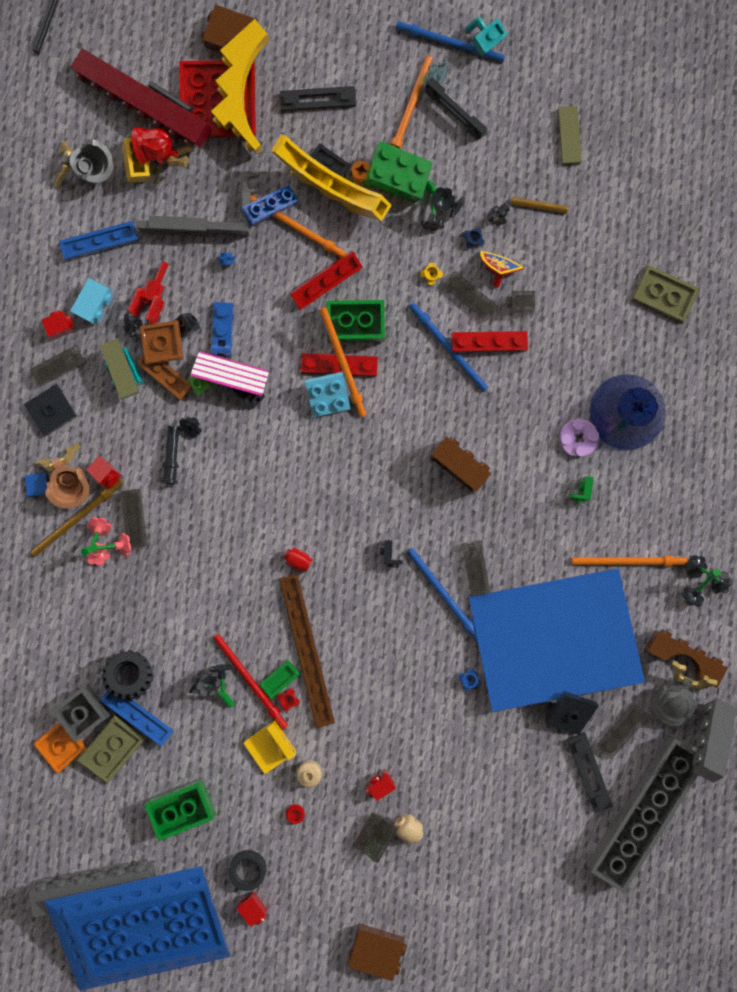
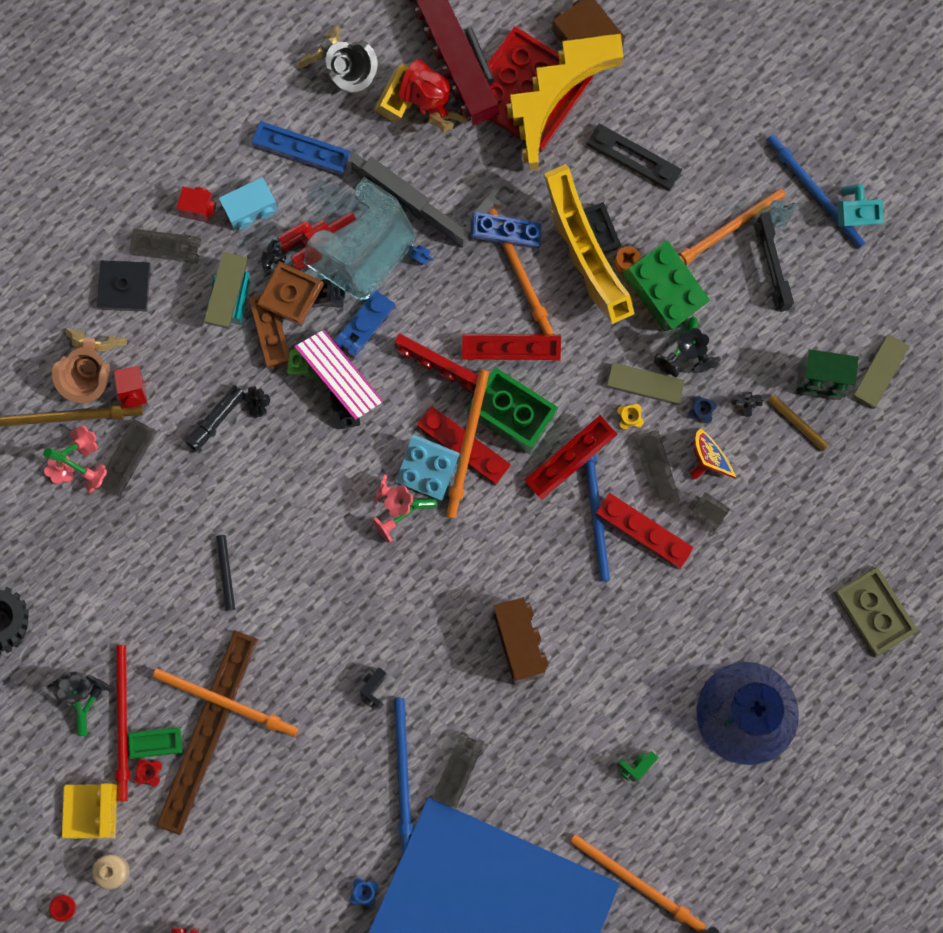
camera: 30 degrees right, 10 degrees down
(36, 484) = (51, 351): blue piece -> none
(192, 277) = (369, 249): none -> clear light blue windscreen
(248, 547) = (225, 573): none -> black bar
(279, 324) = (429, 359): none -> red plate
(297, 559) = (269, 623): red brick -> none
(326, 430) = (398, 504): none -> coral plant
(342, 618) = (272, 722): none -> orange bar
(413, 326) = (571, 457): none -> red plate
(426, 245) = (645, 383): none -> olive tile
(538, 161) = (827, 374): none -> dark green brick
(568, 439) = (660, 697): lavender plate -> none

